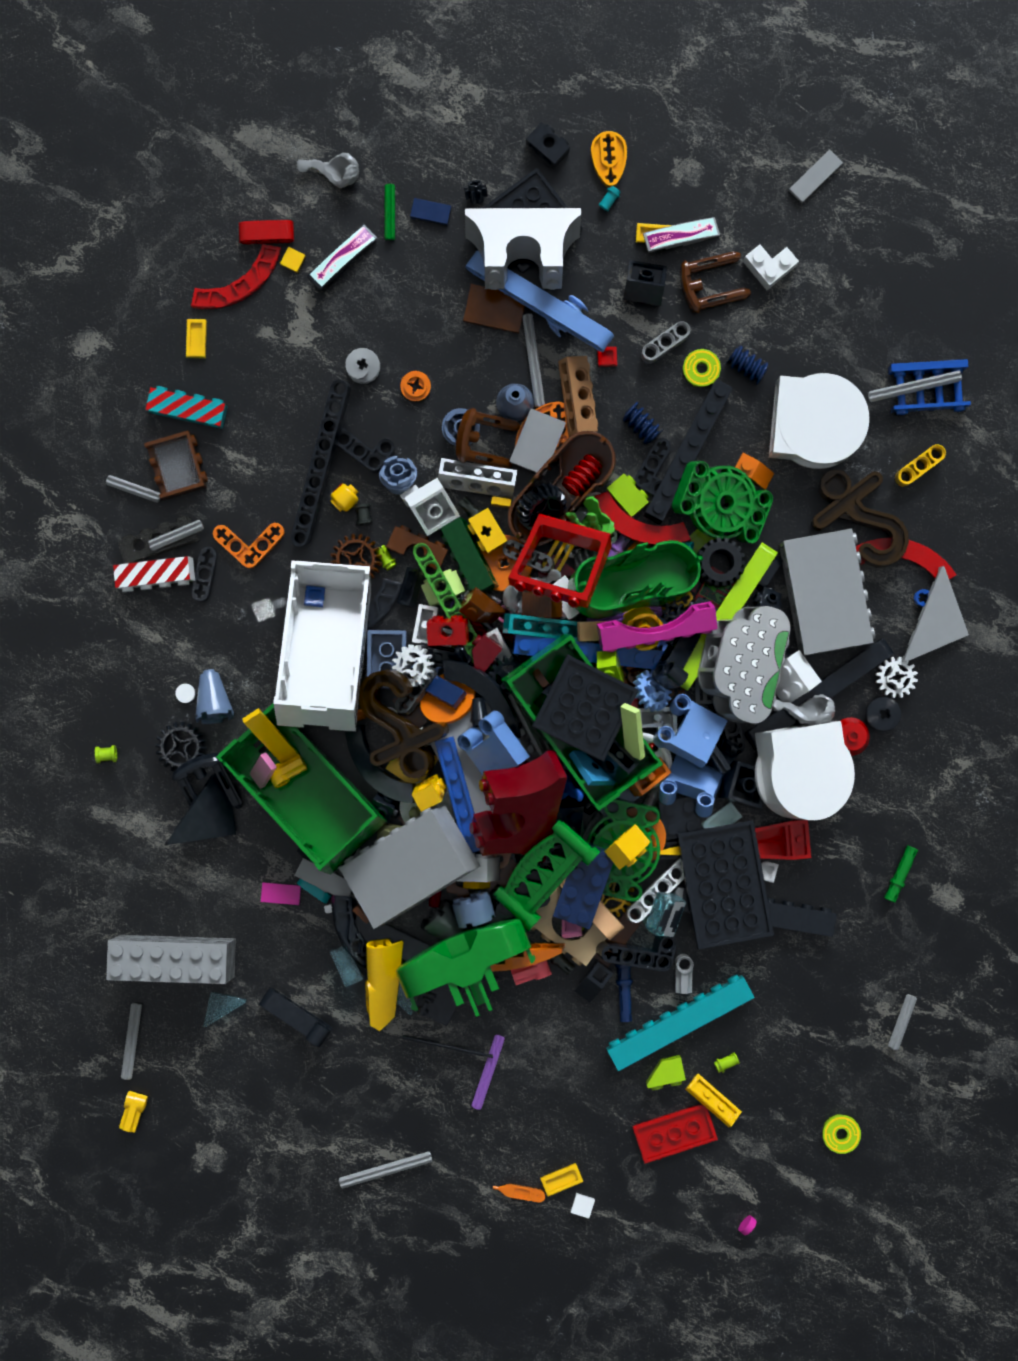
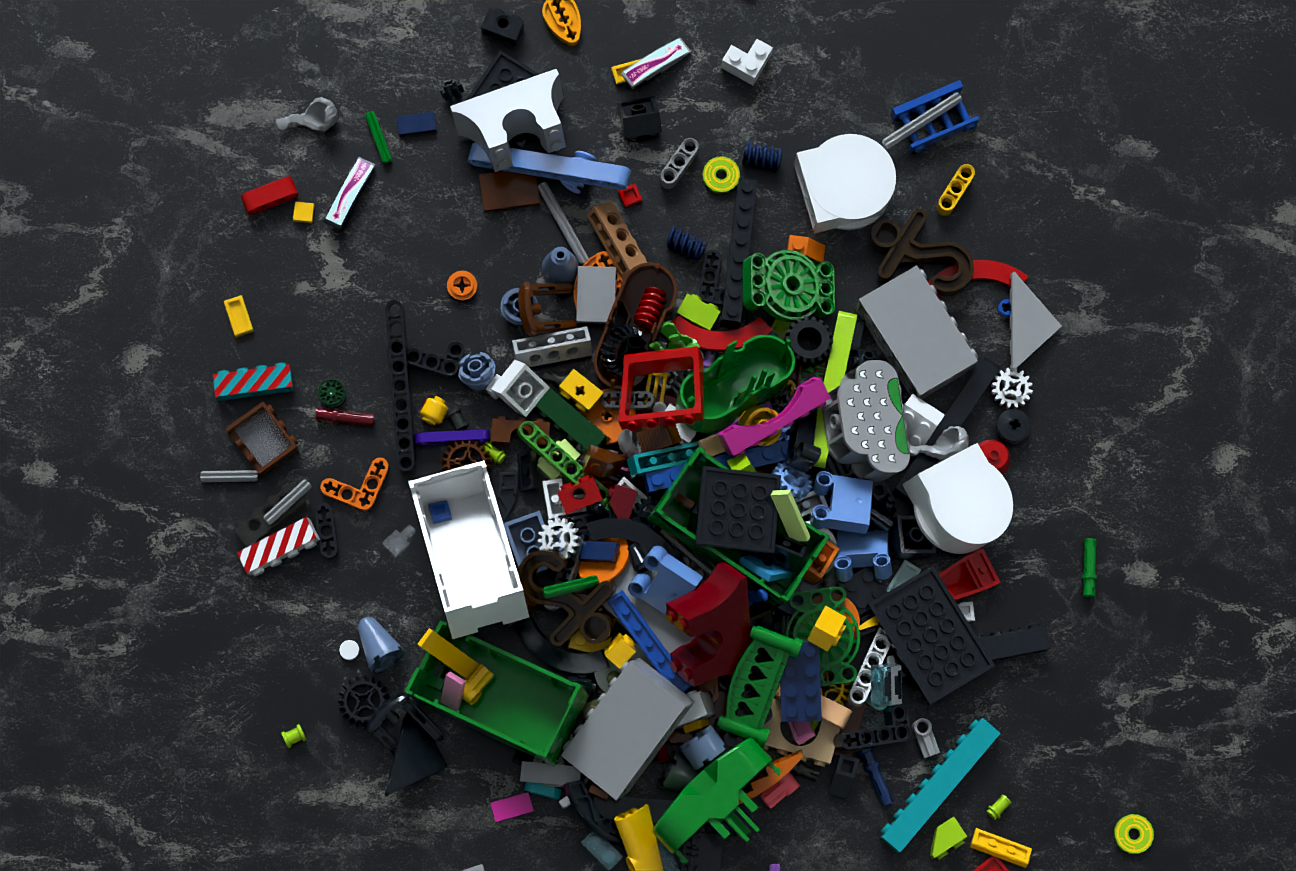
camera: 25 degrees left, 10 degrees down
(242, 287) = (264, 255): red tile -> none
(256, 445) = (332, 393): none -> dark green wheel
(264, 474) = (344, 416): none -> dark red pin
(351, 528) = (449, 437): none -> dark purple beam
(359, 356) = (414, 288): light grey piece -> none
(405, 716) = (570, 586): none -> green axle
(501, 502) = (582, 362): yellow tile -> none
(609, 198) = (577, 54): teal pin -> none
(690, 287) = (681, 106): reddish brown piece -> none
(902, 1022) = (1147, 706): light grey axle -> none

